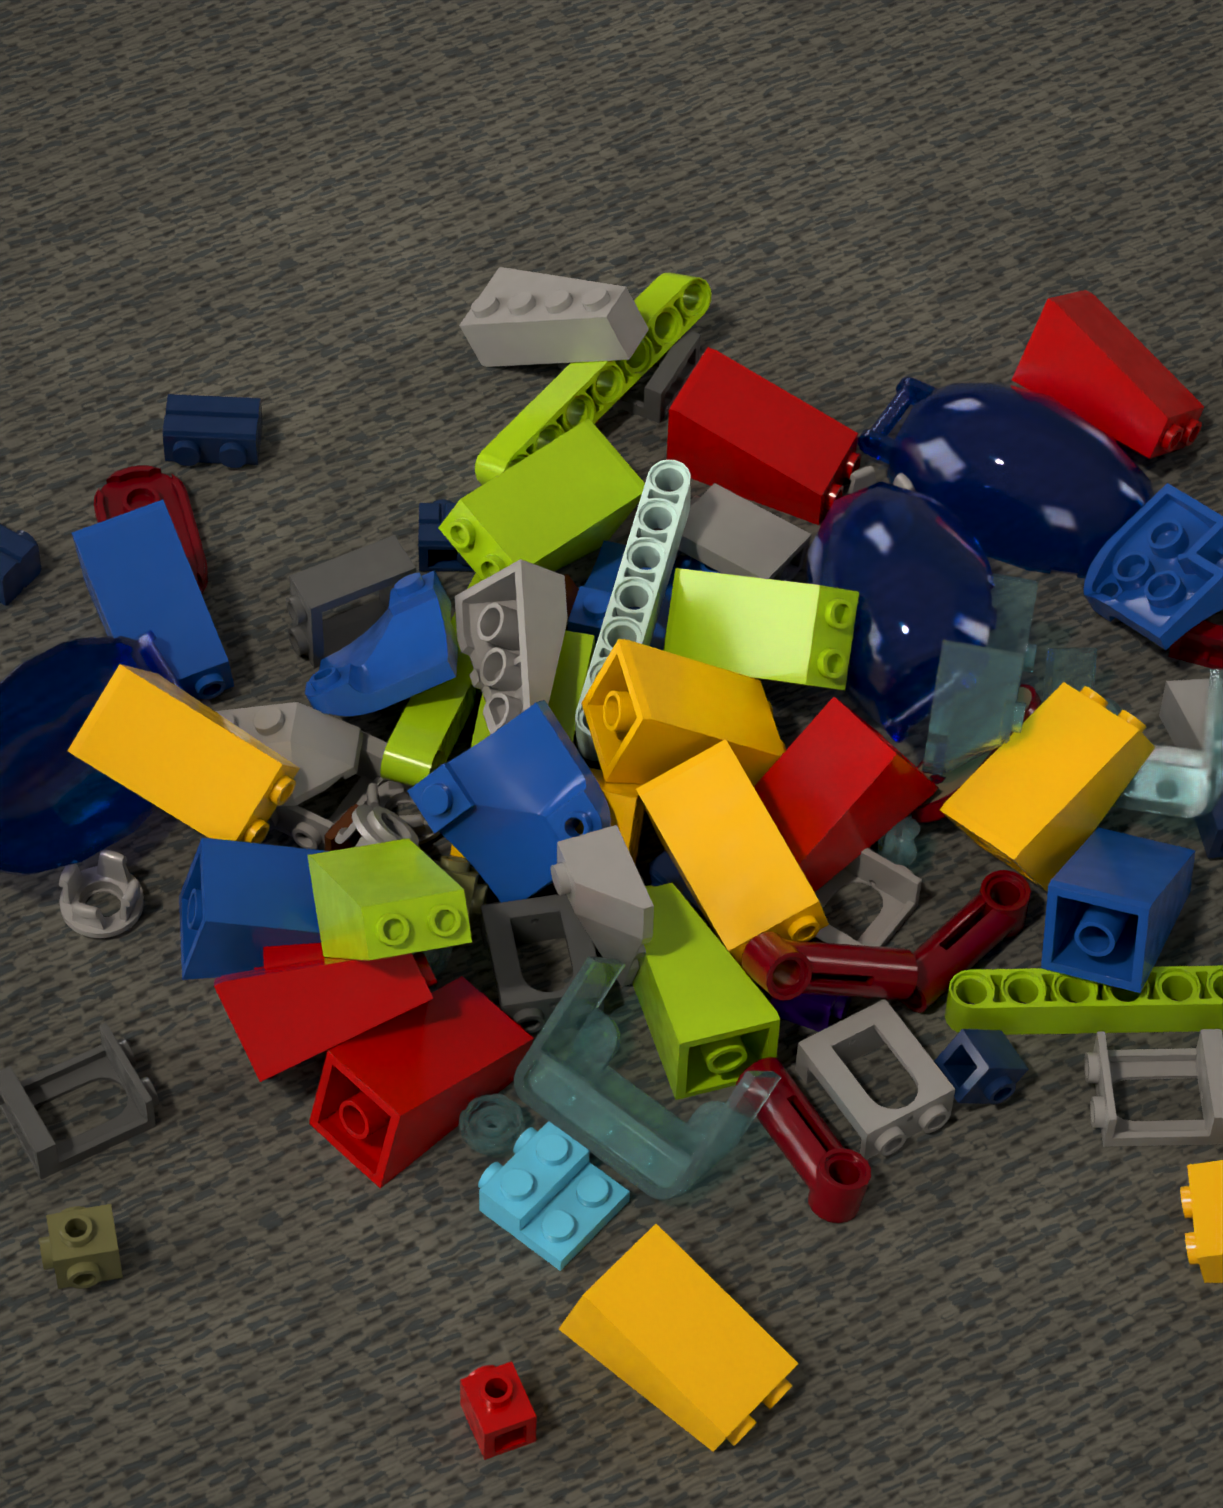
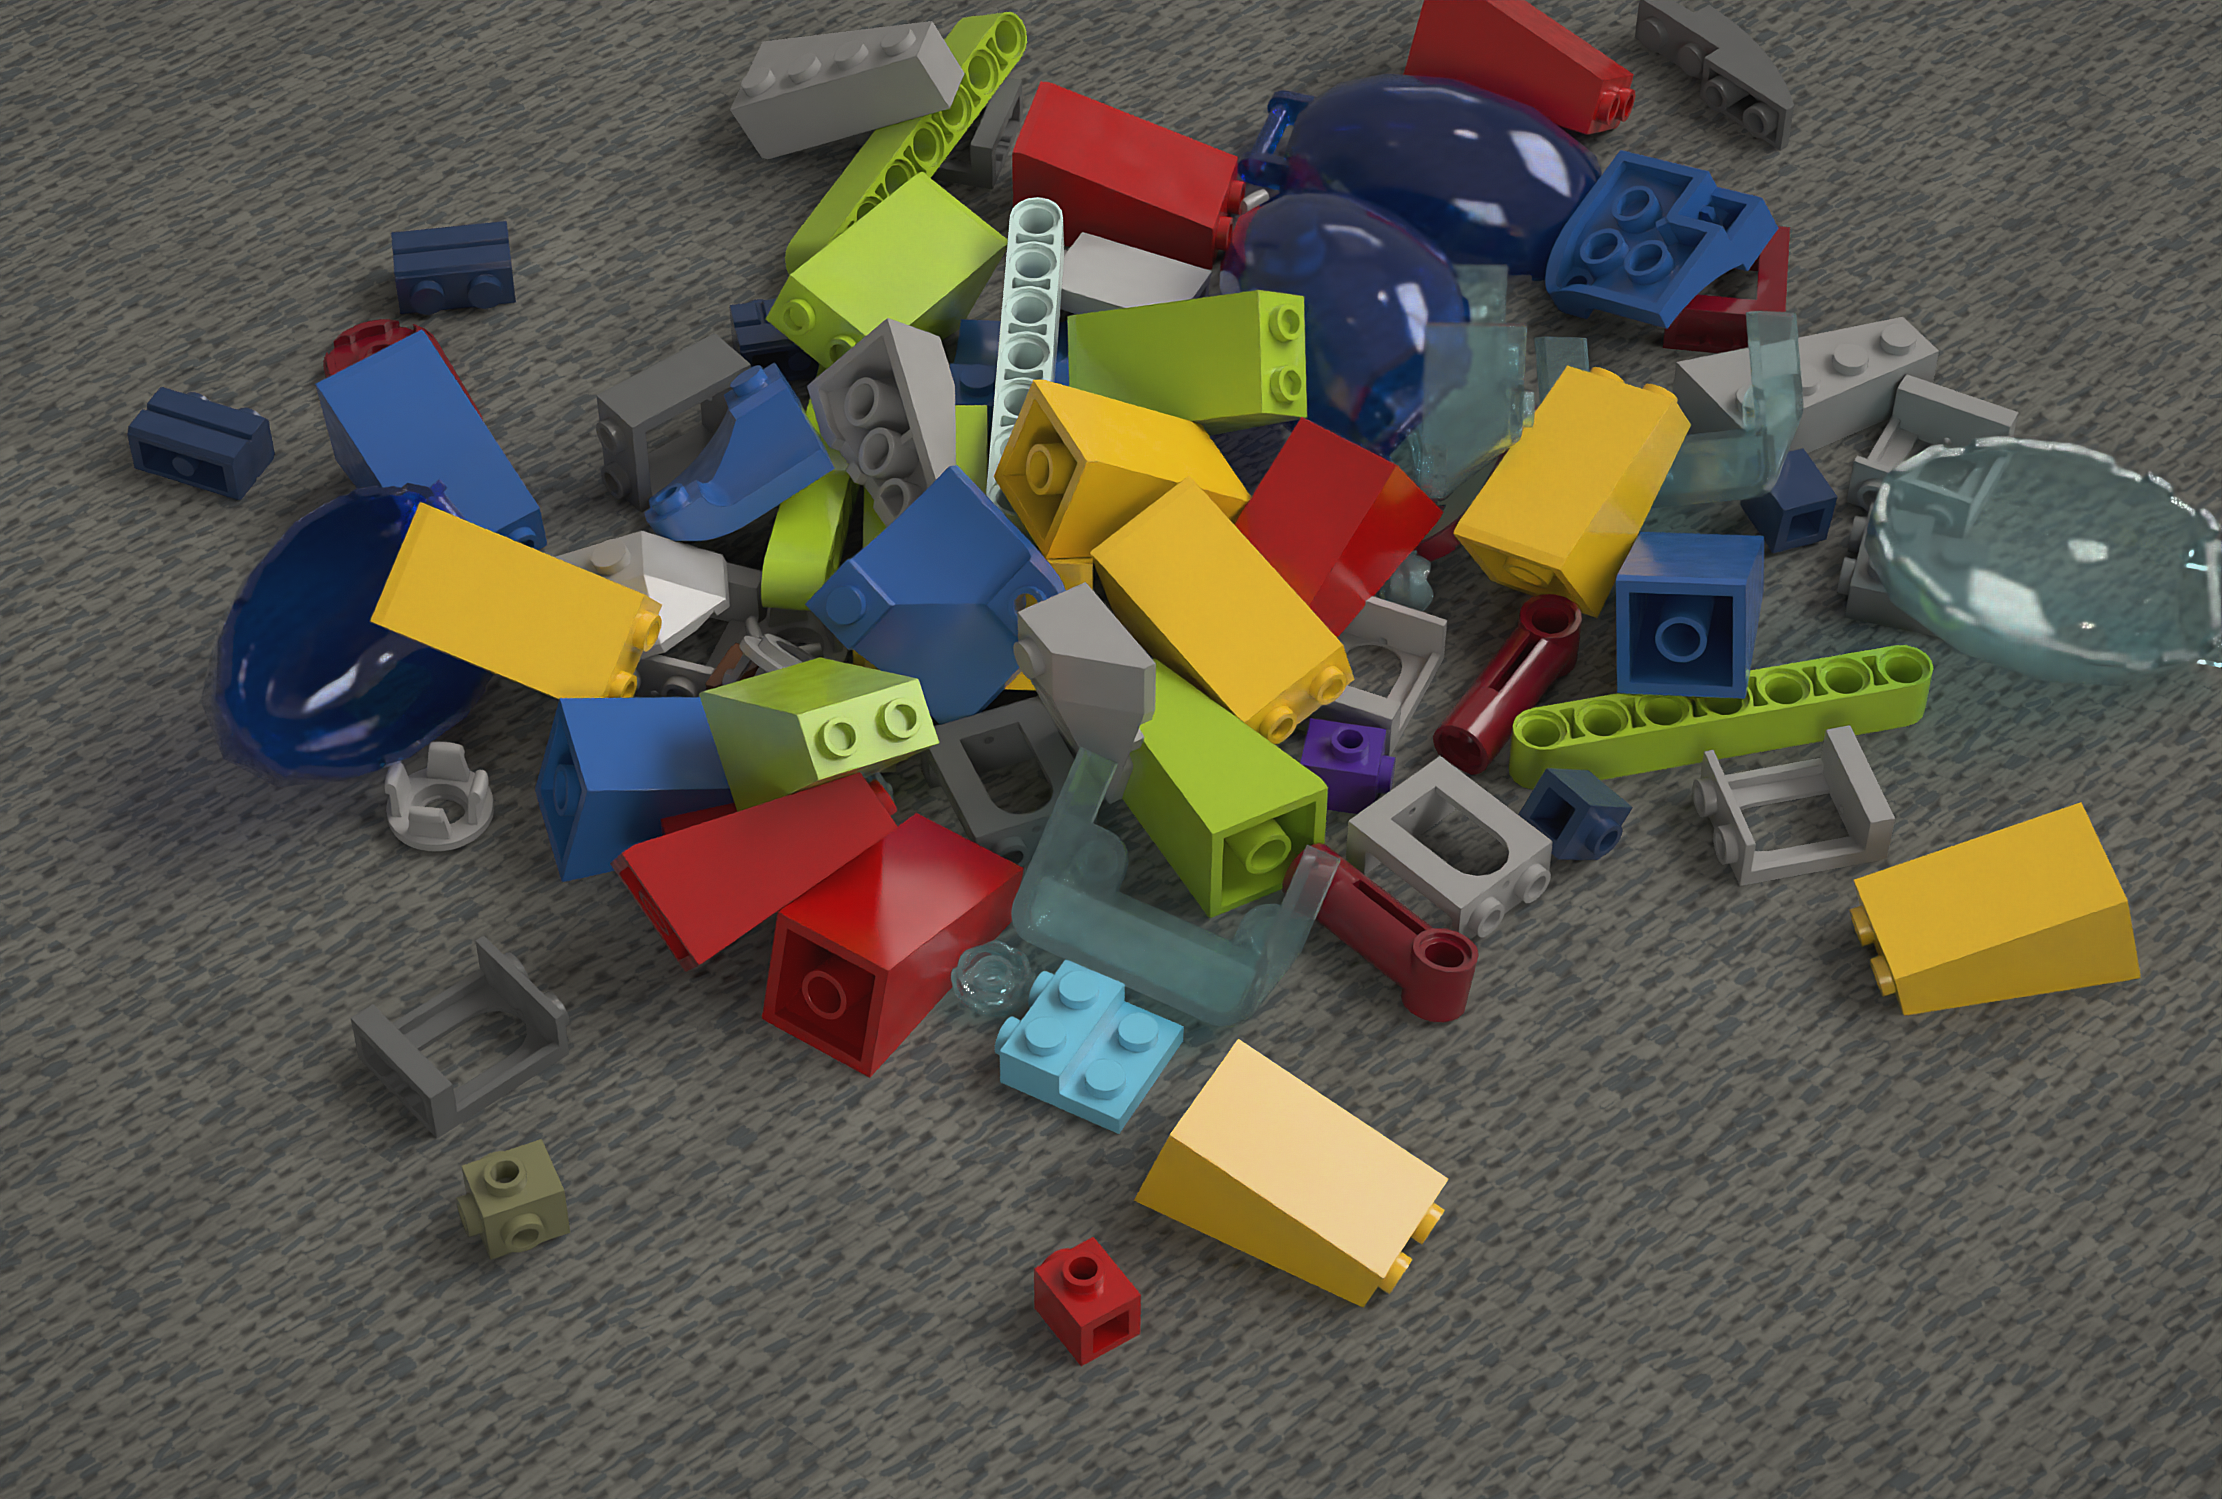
camera: 10 degrees left, 5 degrees down
(829, 969) = (1369, 725): dark red piece -> none

